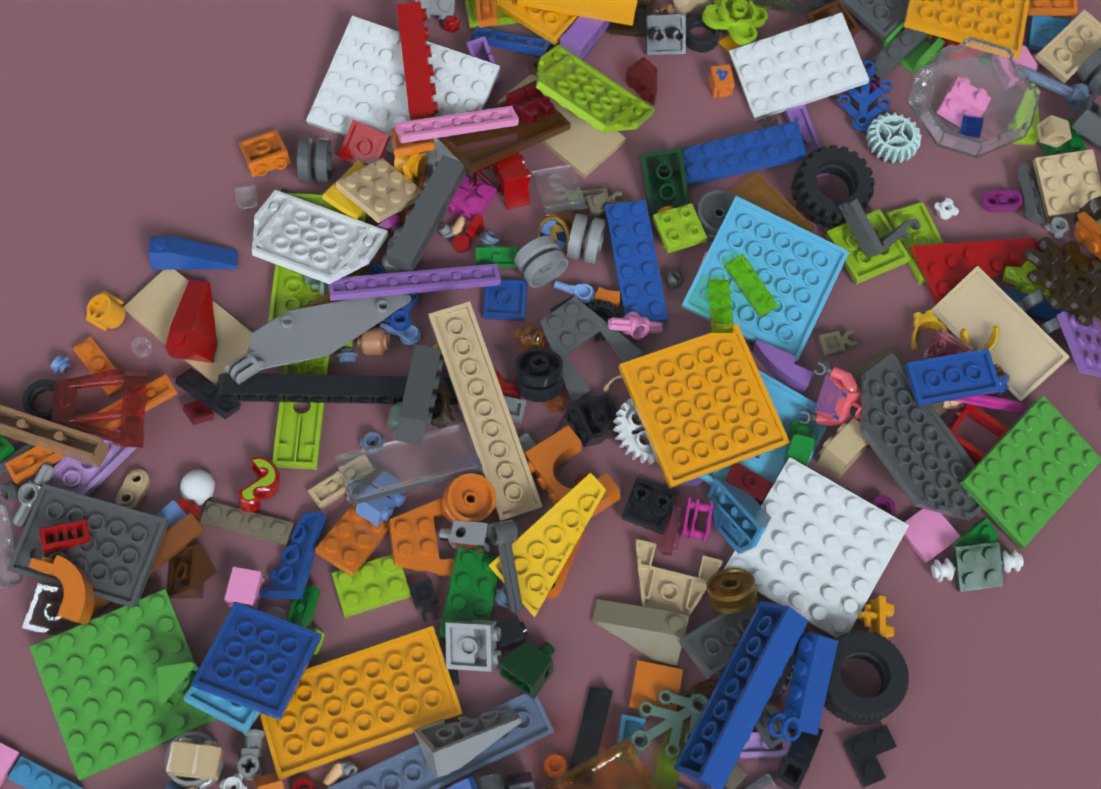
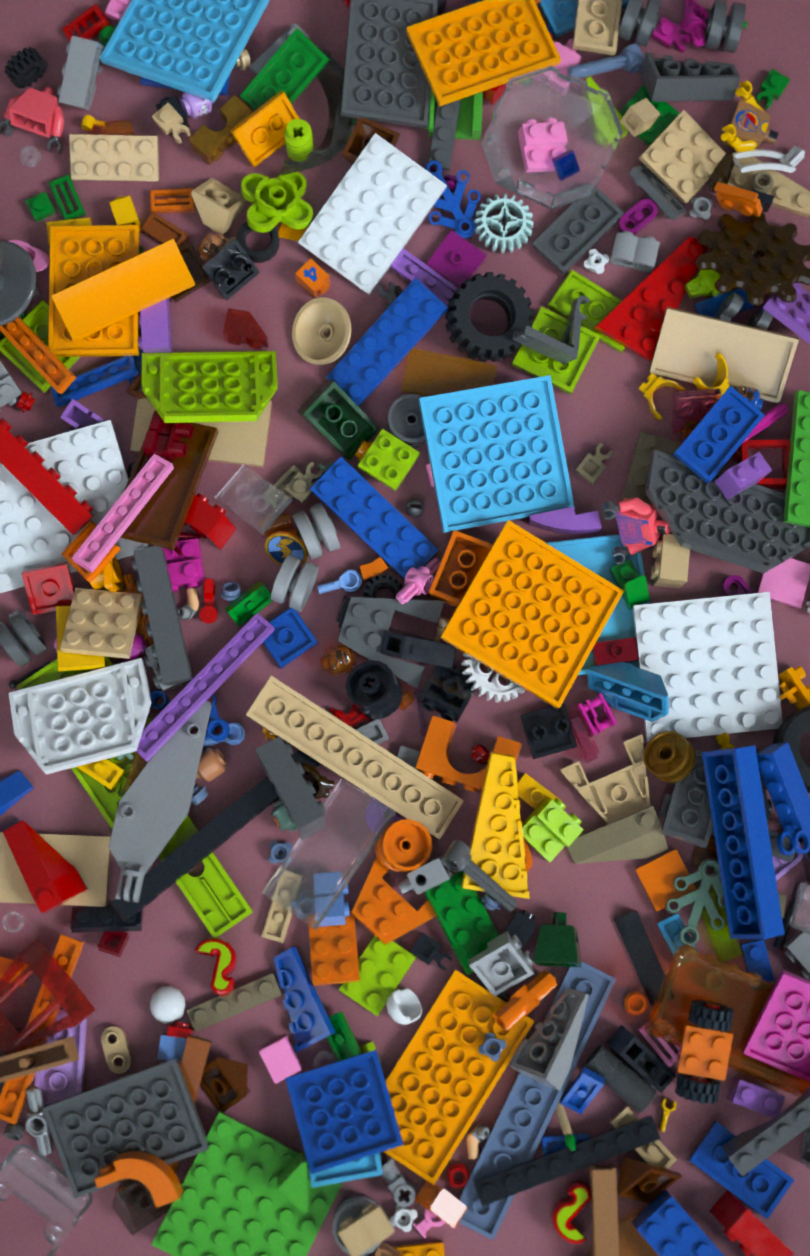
camera: 35 degrees left, 15 degrees up
(46, 532) = (88, 1153): red slope -> none
(294, 286) = (104, 772): none -> yellow plate
(370, 622) = (404, 1006): none -> white hair
(406, 702) = (490, 1039): none -> sand blue plate
(467, 689) = (525, 1000): none -> orange piece
(593, 576) = (551, 828): none -> lime plate
(596, 371) = (418, 648): none -> black slope
(602, 547) = (532, 792): none -> yellow plate
(671, 331) = (458, 567): none -> orange slope
(699, 115) = (312, 329): none -> tan dish
(720, 306) = (481, 514): clear neon green tile -> none
(751, 285) = (490, 471): clear neon green tile -> none
(839, 133) = (456, 259): none -> magenta plate
(947, 178) = (577, 231): none -> dark grey plate
(950, 421) = (743, 475): none -> medium lavender brick
(981, 220) = (634, 251): none -> light grey brick

